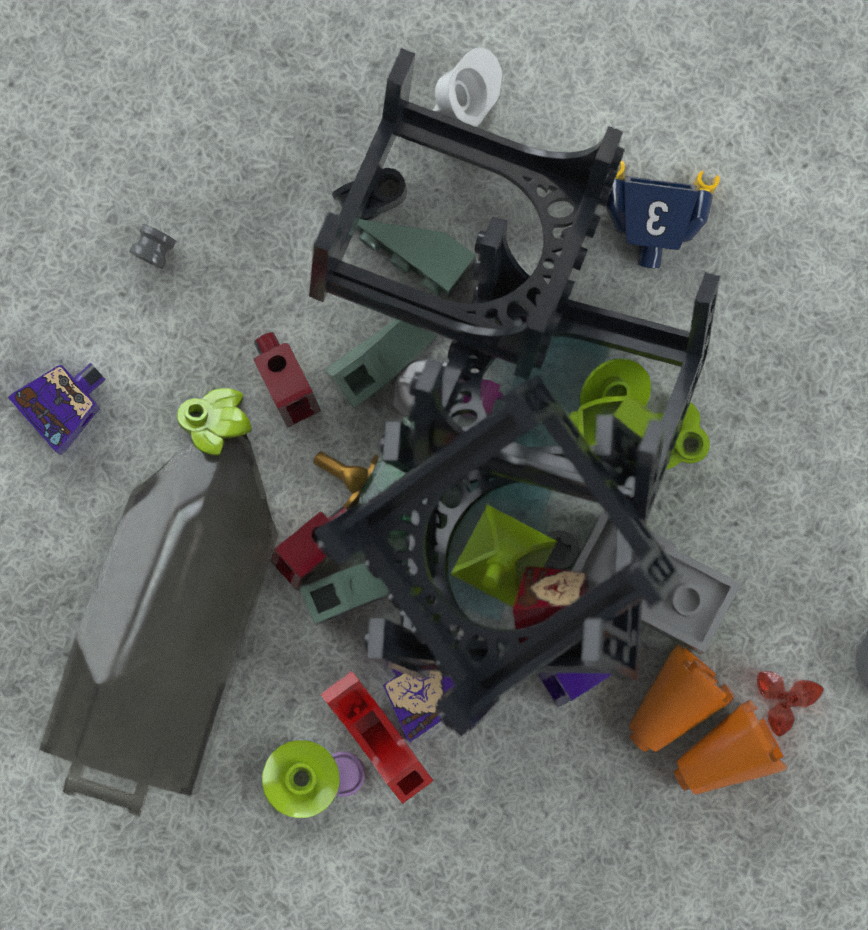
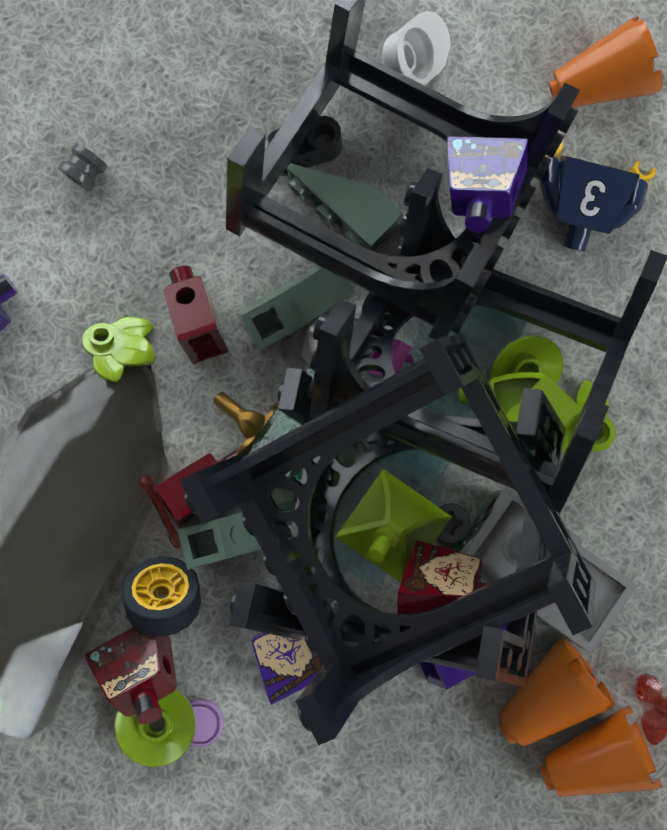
camera: 10 degrees right, 0 degrees up
(276, 726) = (135, 673): none -> dark red torso
(291, 654) = (152, 580): none -> wheel
(294, 600) = (147, 483): none -> clear red hinge
(377, 737) = (240, 694): red arch -> none
(548, 218) = (485, 177): none -> dark purple torso
(659, 86) = (613, 67): none -> orange cone

